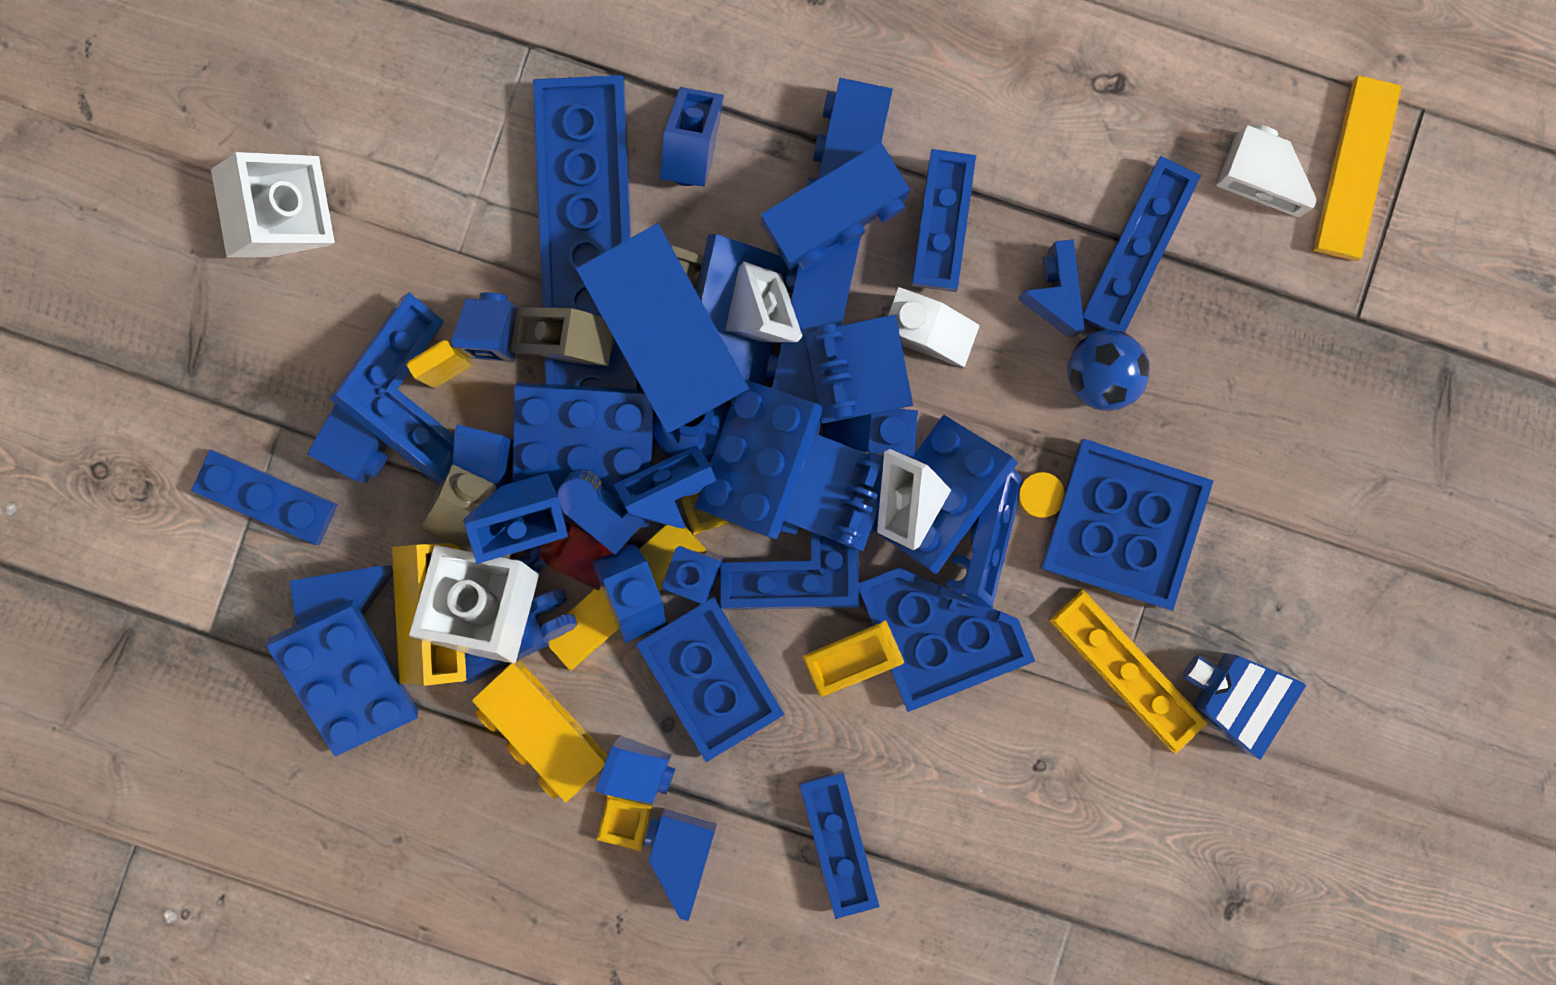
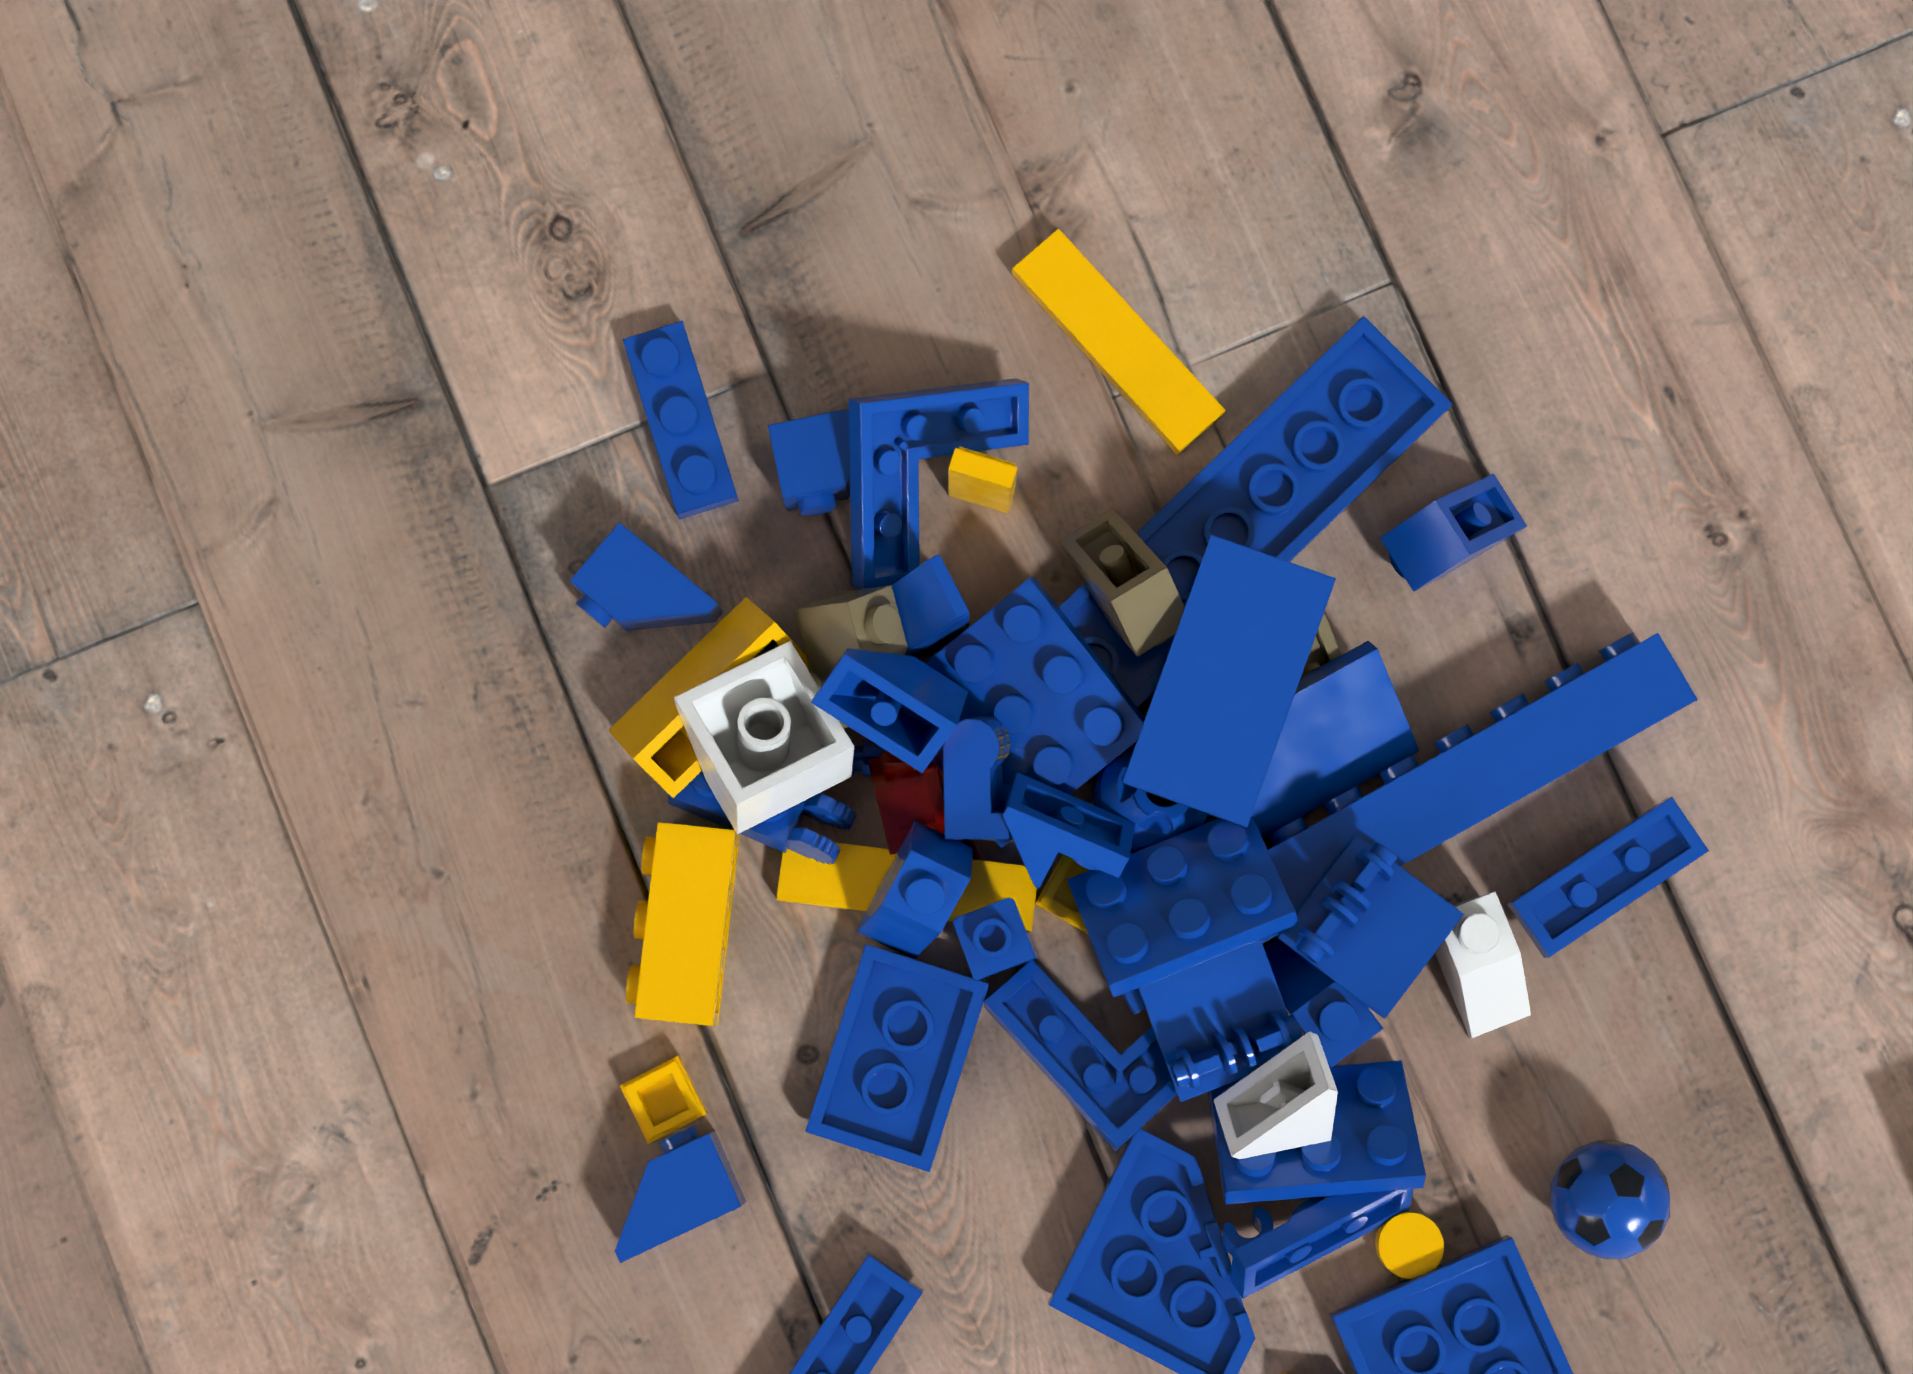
camera: 45 degrees right, 5 degrees down
(271, 204) = (992, 163): white slope -> none
(342, 677) = (564, 666): blue plate -> none
(430, 223) = (1118, 342): none -> yellow tile
(486, 328) = (1062, 495): blue slope -> none
(635, 771) = (731, 1064): blue slope -> none
(762, 307) = (1342, 765): white slope -> none
(836, 208) = (1519, 751): blue brick -> none
(853, 659) = (1054, 1194): yellow tile -> none
(1061, 303) = (1637, 1083): blue slope -> none
(1140, 246) = (1773, 1115): blue plate -> none

